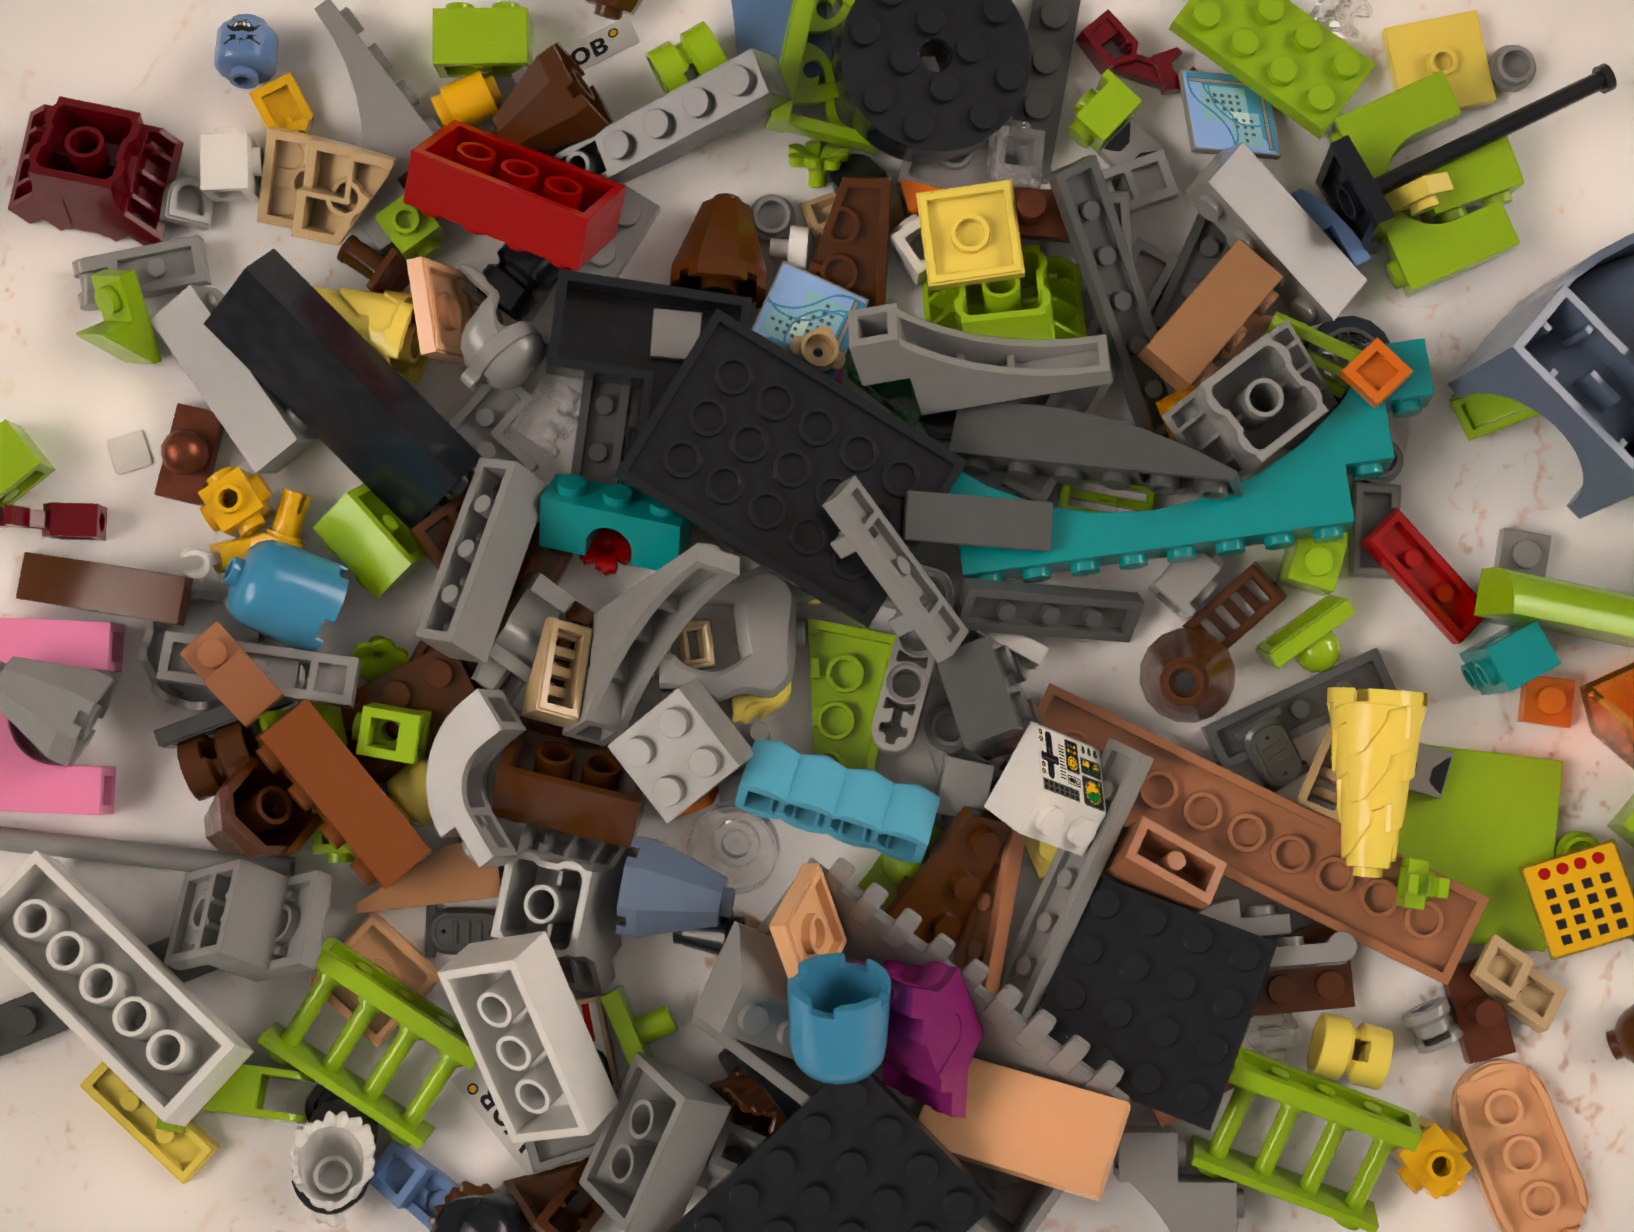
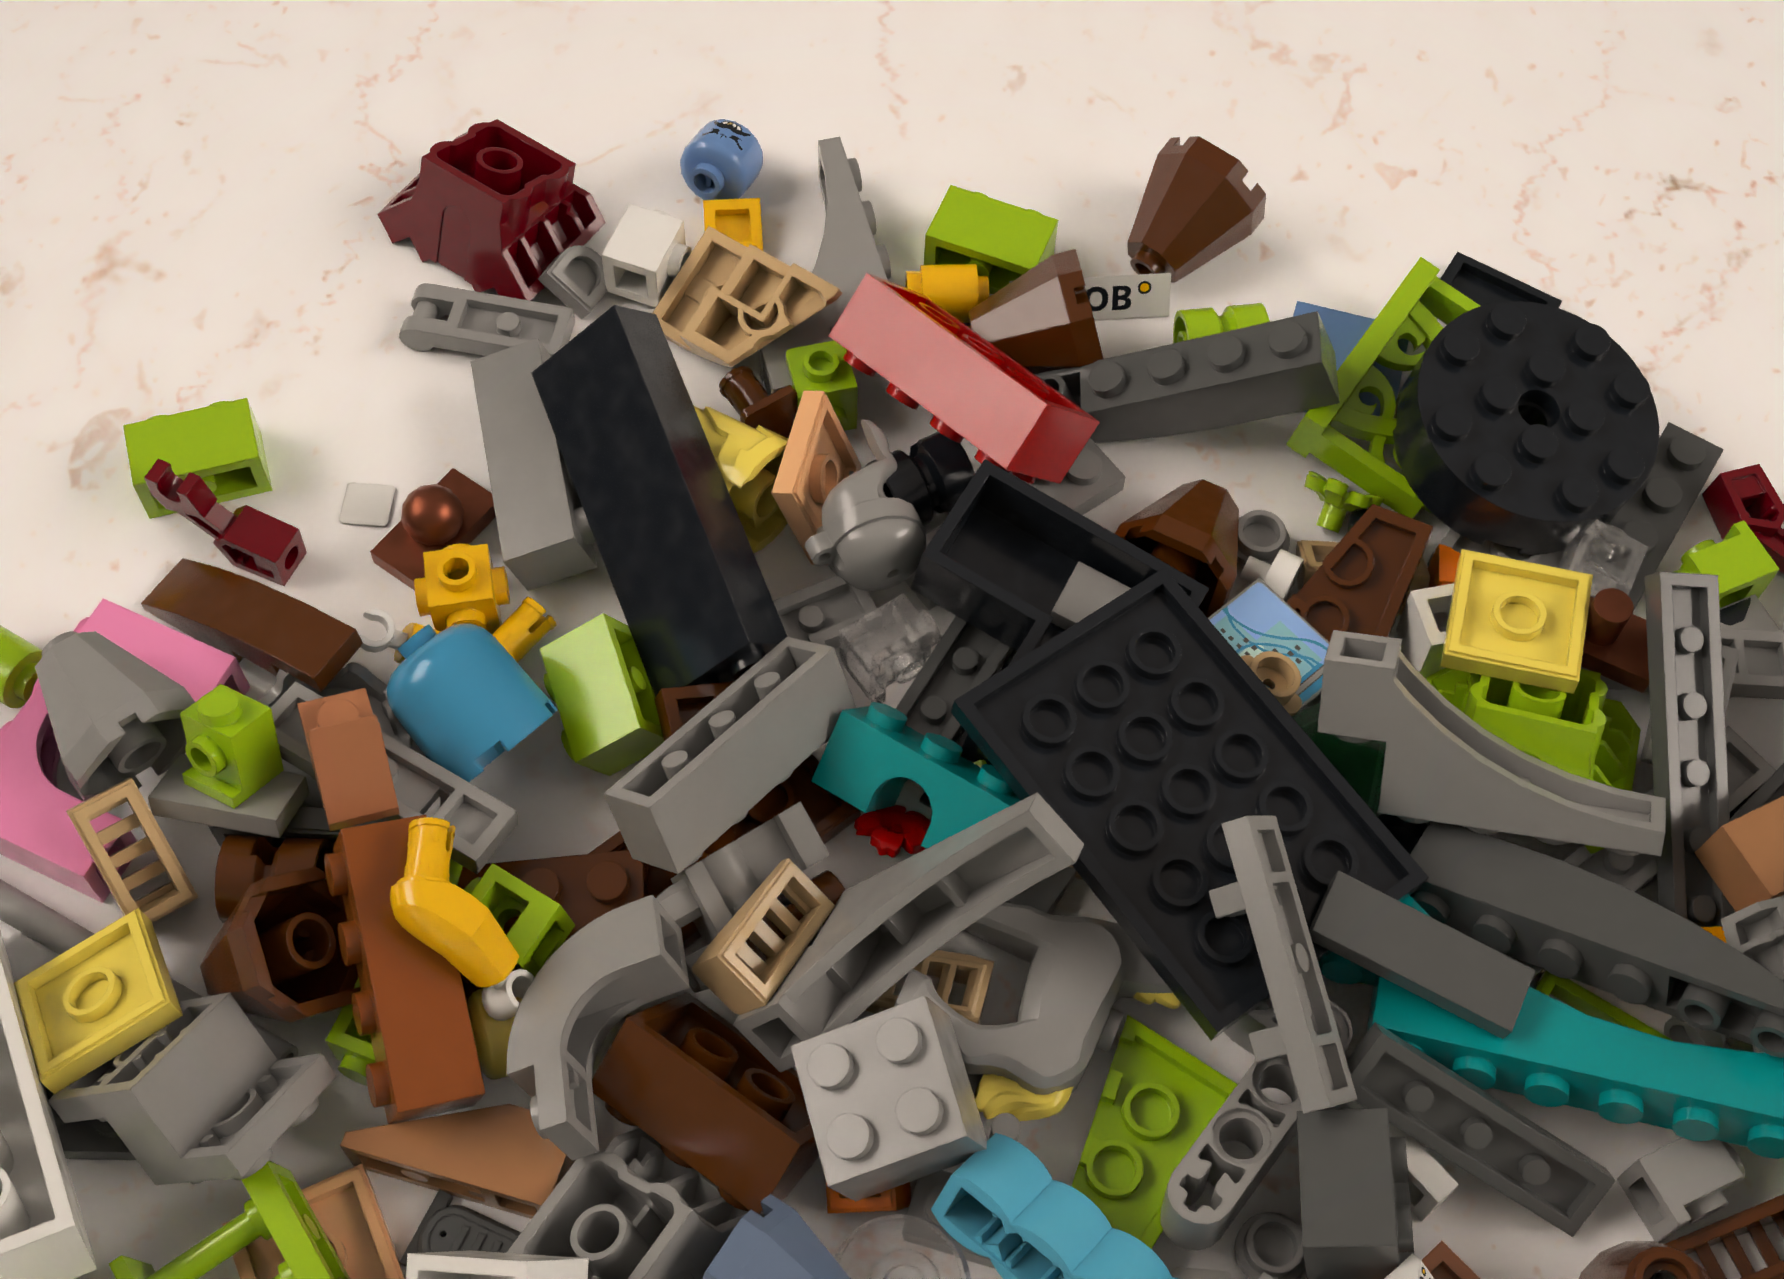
camera: 20 degrees right, 25 degrees down
(126, 323) = (438, 364): lime slope -> none
(150, 699) = (230, 745): none -> lime brick
(151, 807) = (158, 902): none -> tan slope
(156, 890) = (96, 1000): none -> light yellow plate
(164, 724) = (263, 813): none -> light grey tile
(358, 764) = (455, 920): none -> yellow arm
(379, 657) = (540, 836): lime plant -> none

